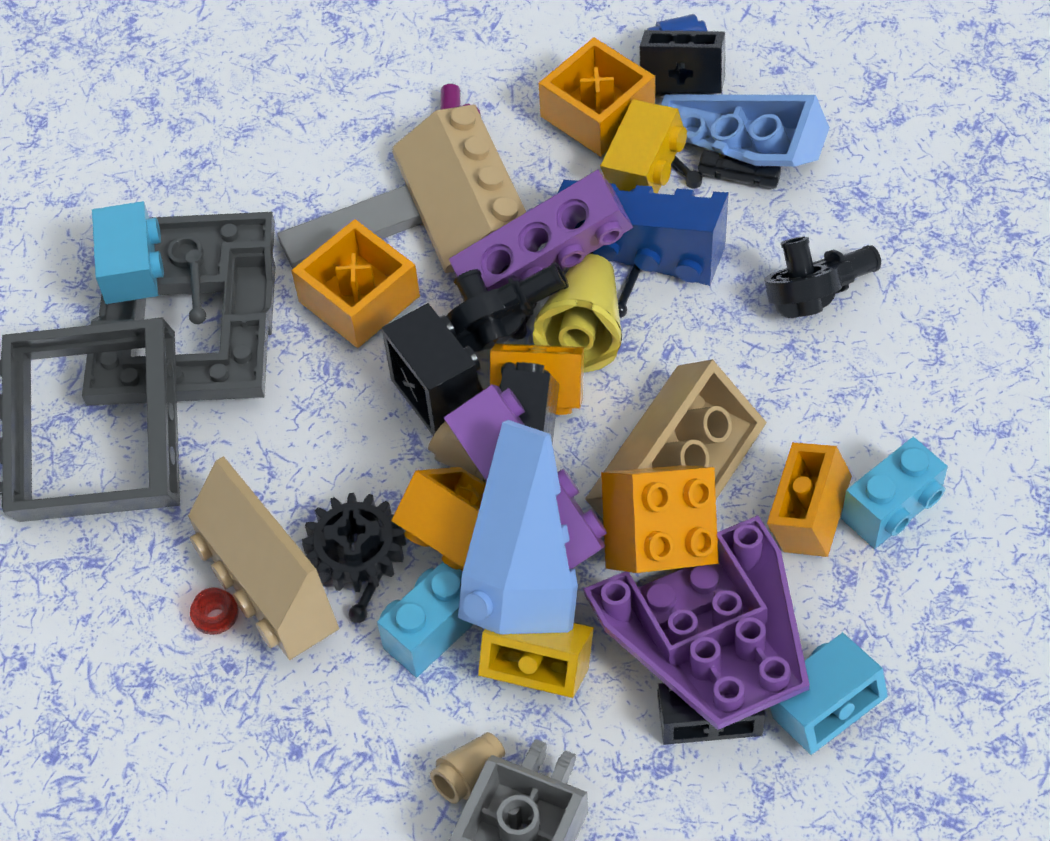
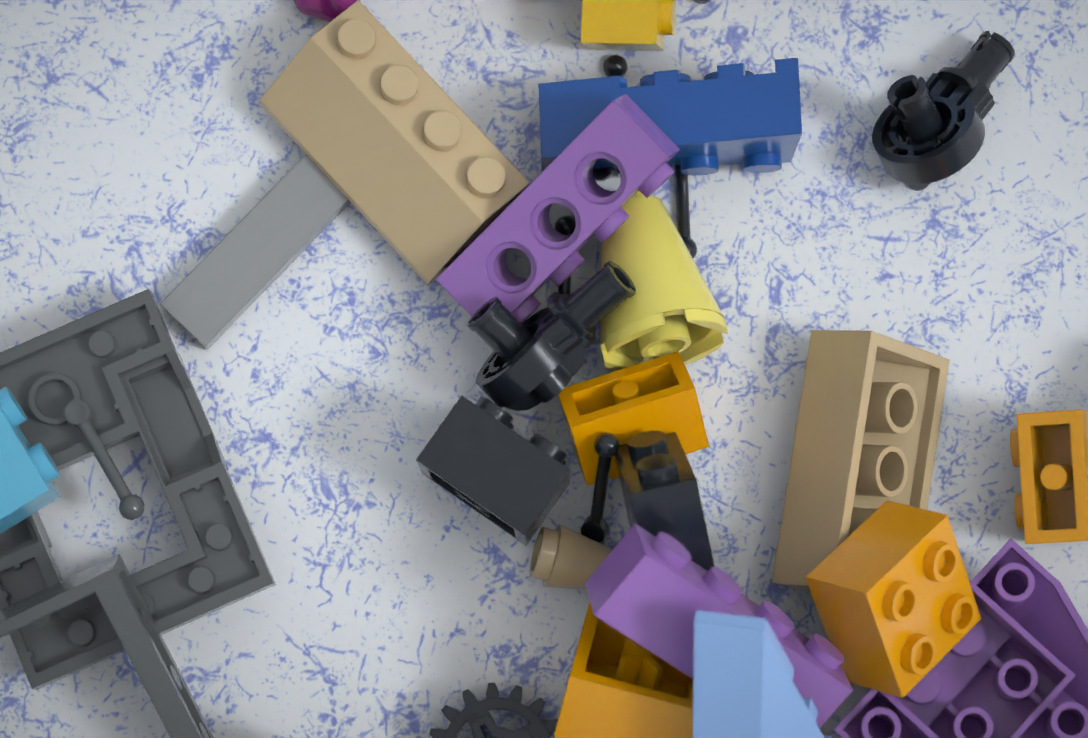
camera: 25 degrees left, 25 degrees up
(356, 283) = (319, 359): light orange brick -> none

